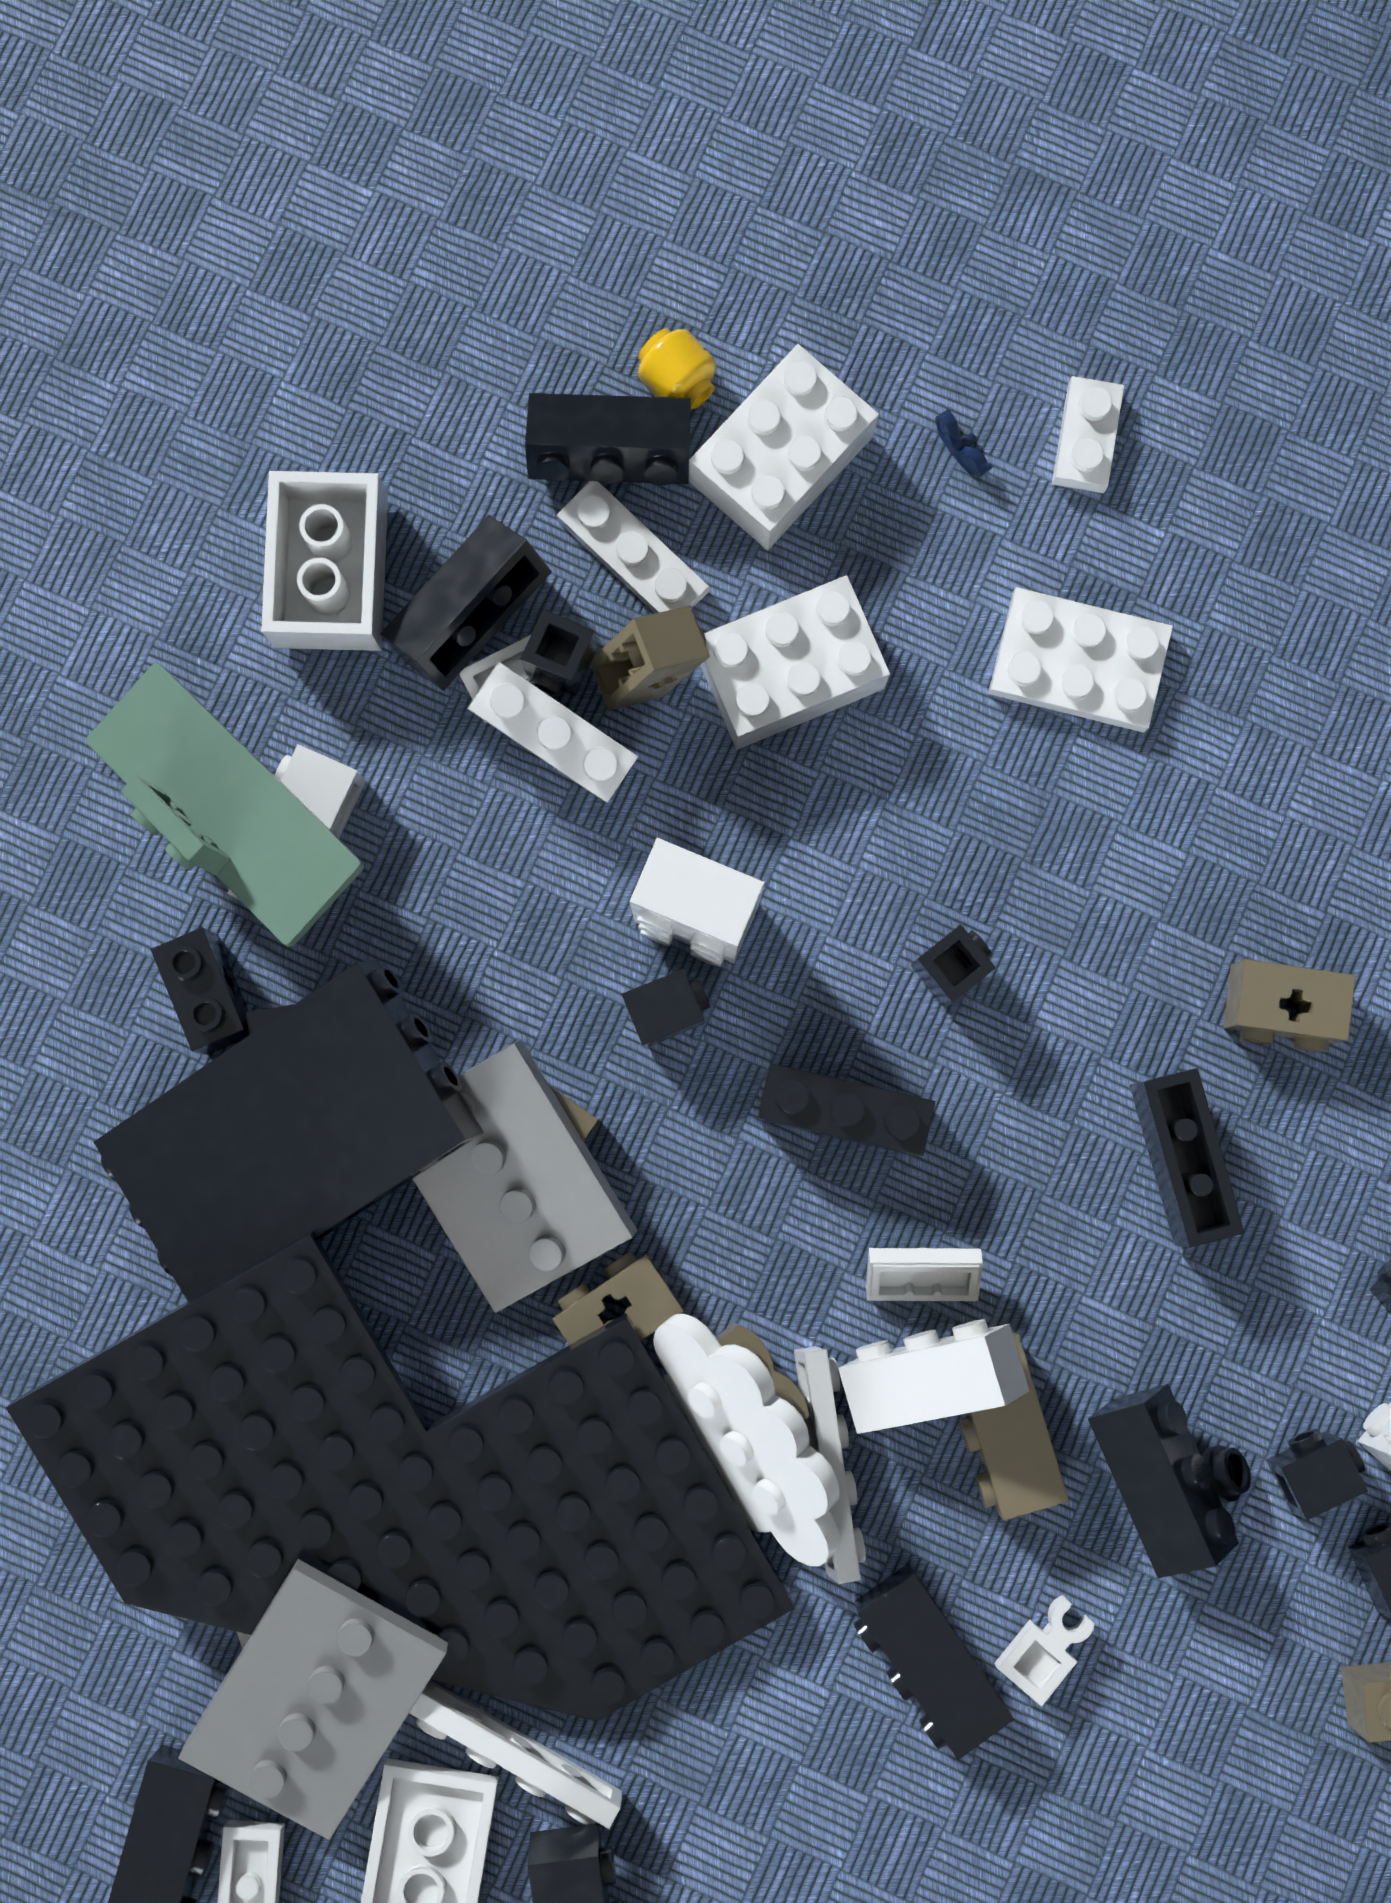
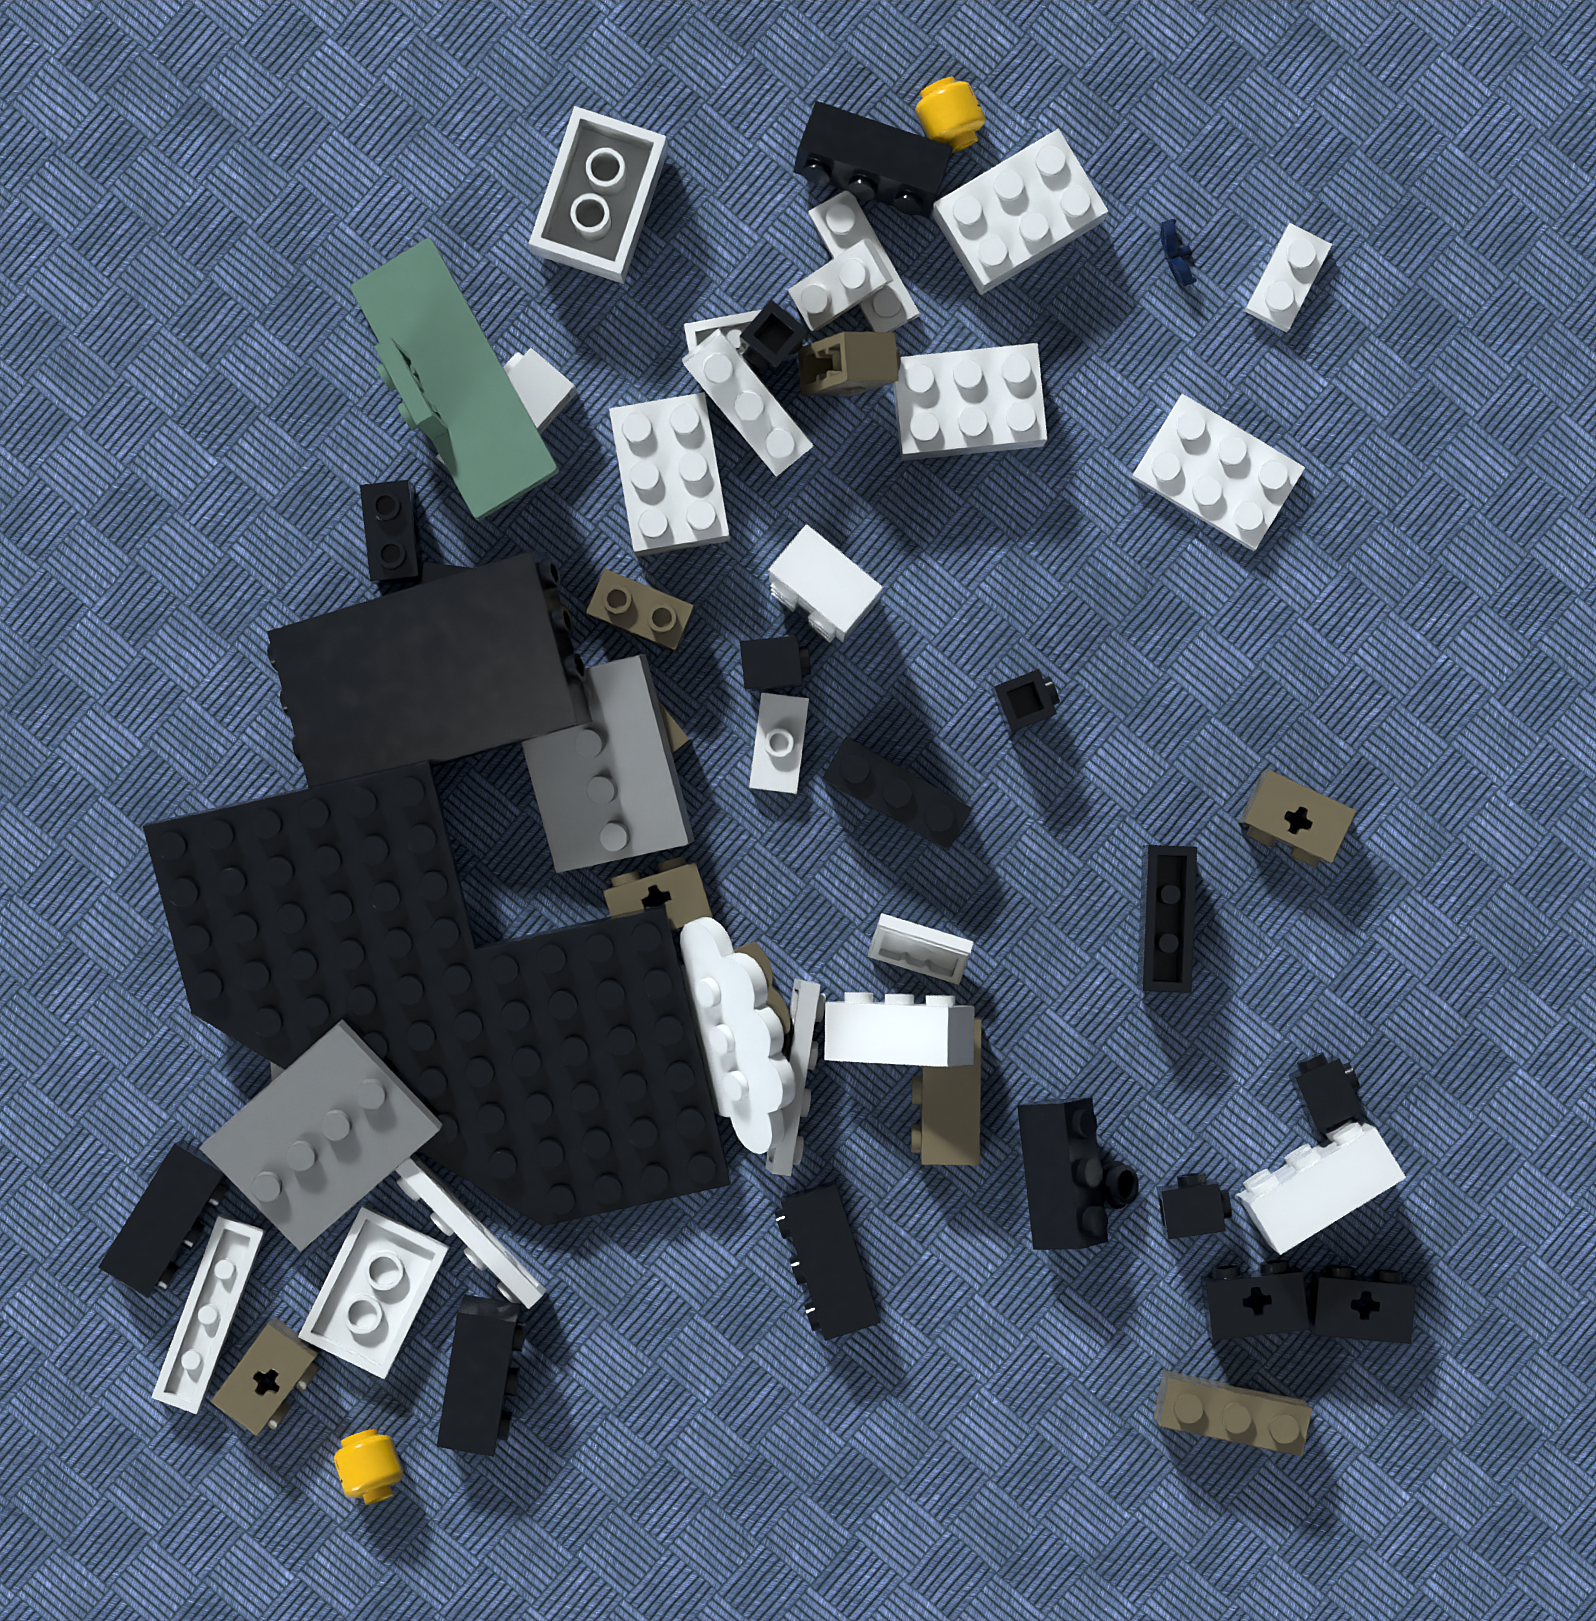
camera: 20 degrees right, 5 degrees up
(466, 602) = (708, 266): black brick -> none
(490, 837) = (669, 474): none -> white brick
(502, 994) = (641, 611): none -> dark tan brick
(615, 579) = (840, 285): none -> white plate
(698, 1093) = (779, 743): none -> white plate
(1039, 1657) = (917, 1285): white plate -> none

